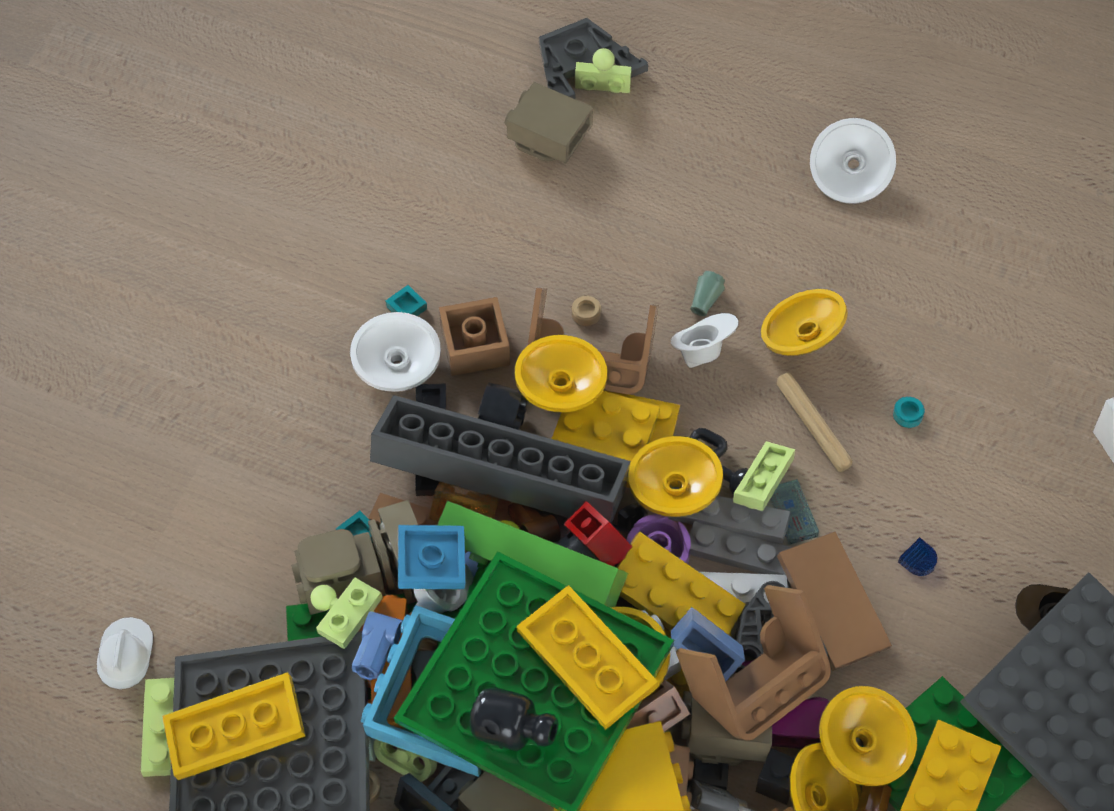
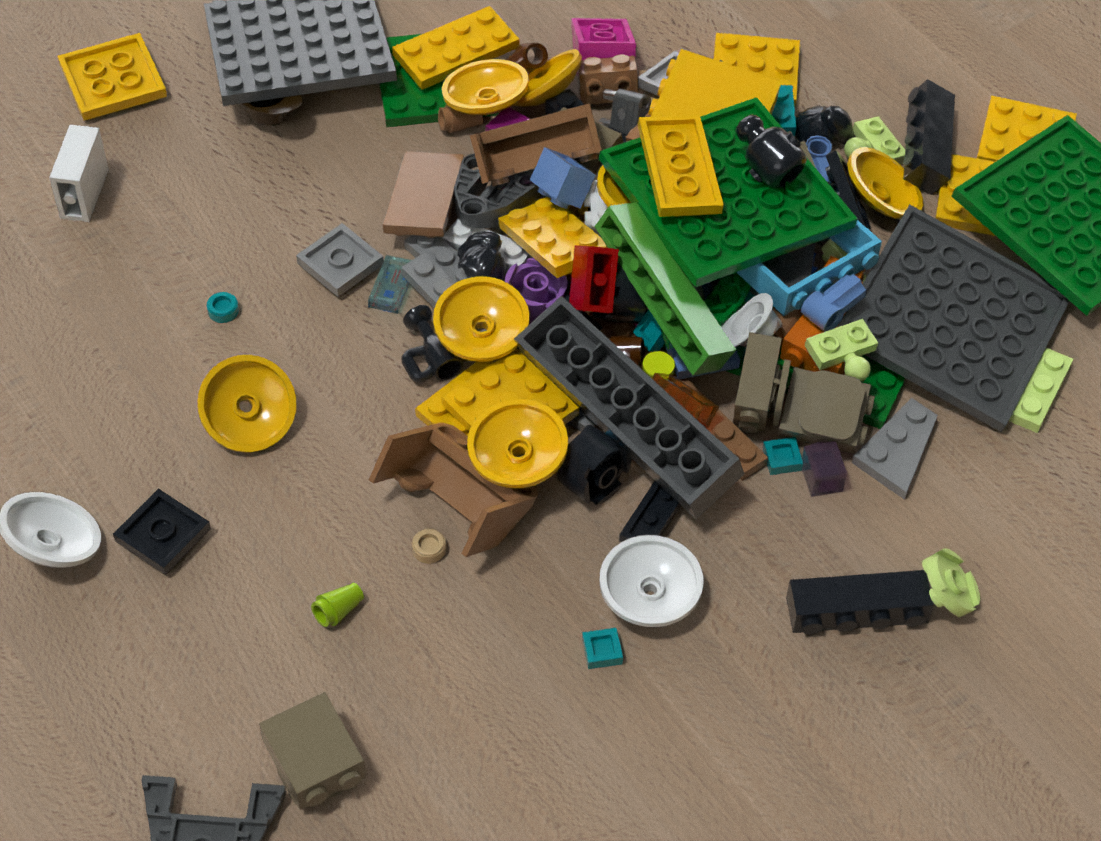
camera: 150 degrees left, 5 degrees down
(124, 653) = (1048, 464): white piece -> none
(173, 475) = (950, 583): none -> yellowish green plate
(228, 431) = (859, 601): none -> black brick
(233, 726) = (984, 325): yellow plate -> none
(263, 595) = (898, 447): none -> light grey wing
(311, 521) = (823, 468): none -> clear purple brick
(431, 557) = (754, 312): dark azure plate -> none
(474, 336) = (562, 557): medium nougat brick -> none
(603, 74) = (197, 780): yellowish green plate -> none
(616, 230) = (336, 604): none -> lime cone
(704, 339) = (344, 440): white piece -> none
(707, 291) = (301, 494): sand green cone -> none
(724, 550) = (481, 256): none -> black hair
(764, 476) = (395, 302): yellowish green plate -> none
(782, 214) = (161, 531): none -> black plate
(814, 422) = (310, 339): tan axle -> none
(852, 503) = (340, 259): none -> light grey plate
(919, 558) = (323, 202): clear blue tile -> none

